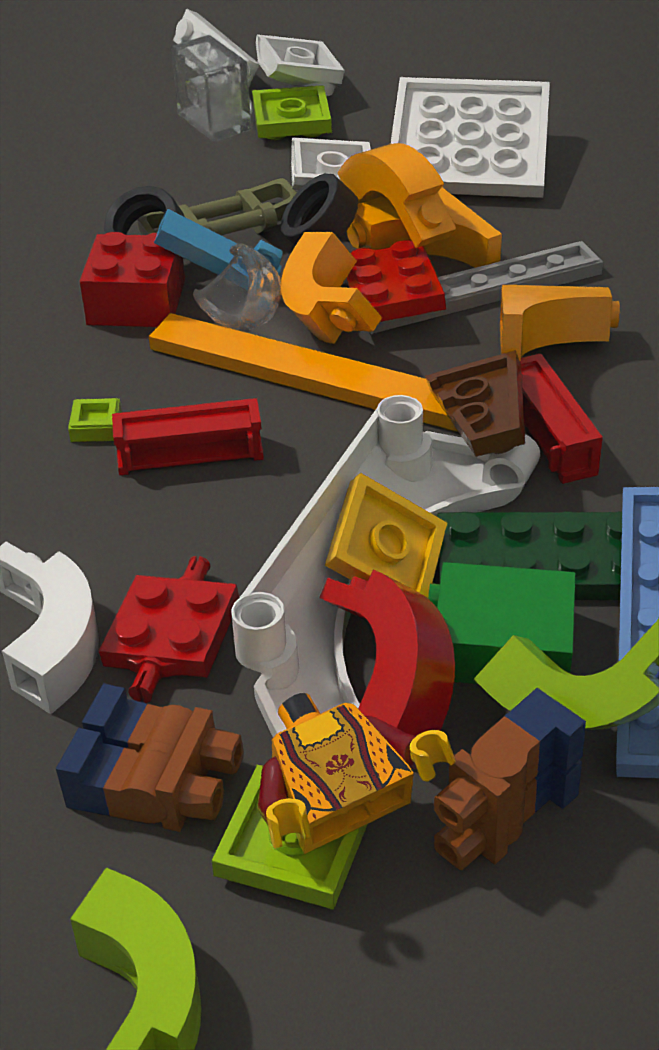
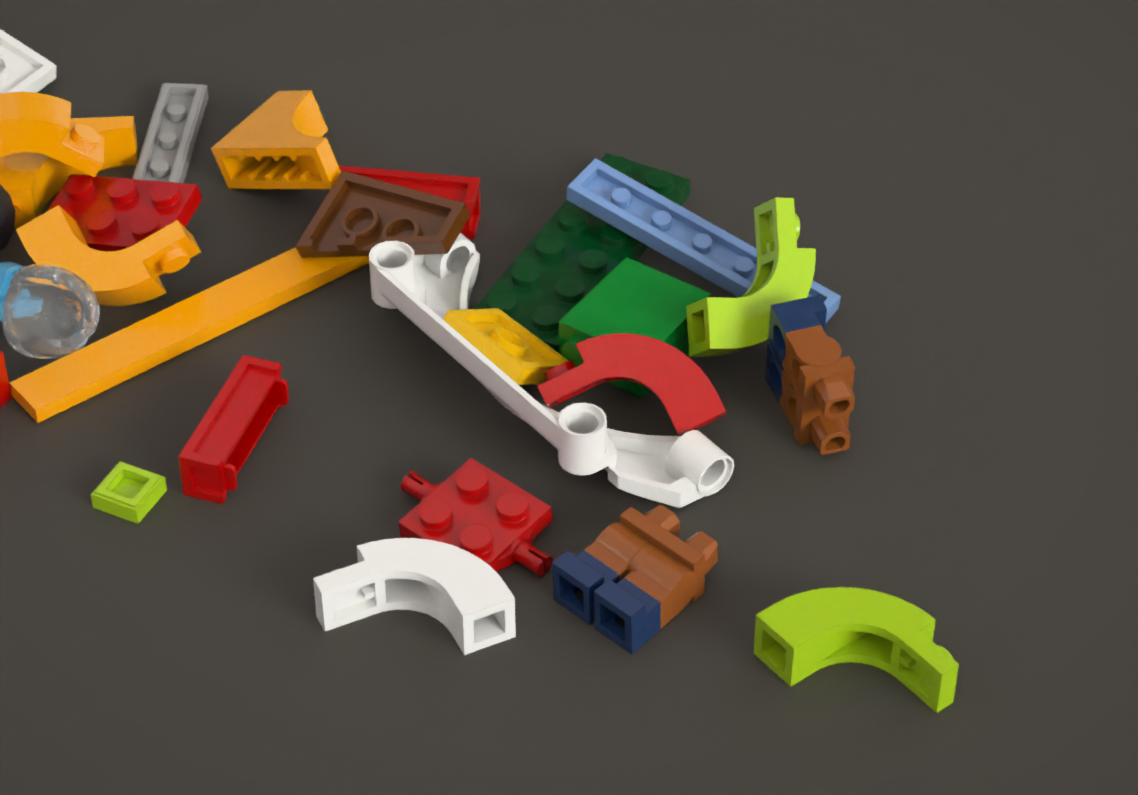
camera: 65 degrees left, 0 degrees up
(249, 858) = (766, 519): lime plate -> none
(340, 771) = (760, 445): torso -> none

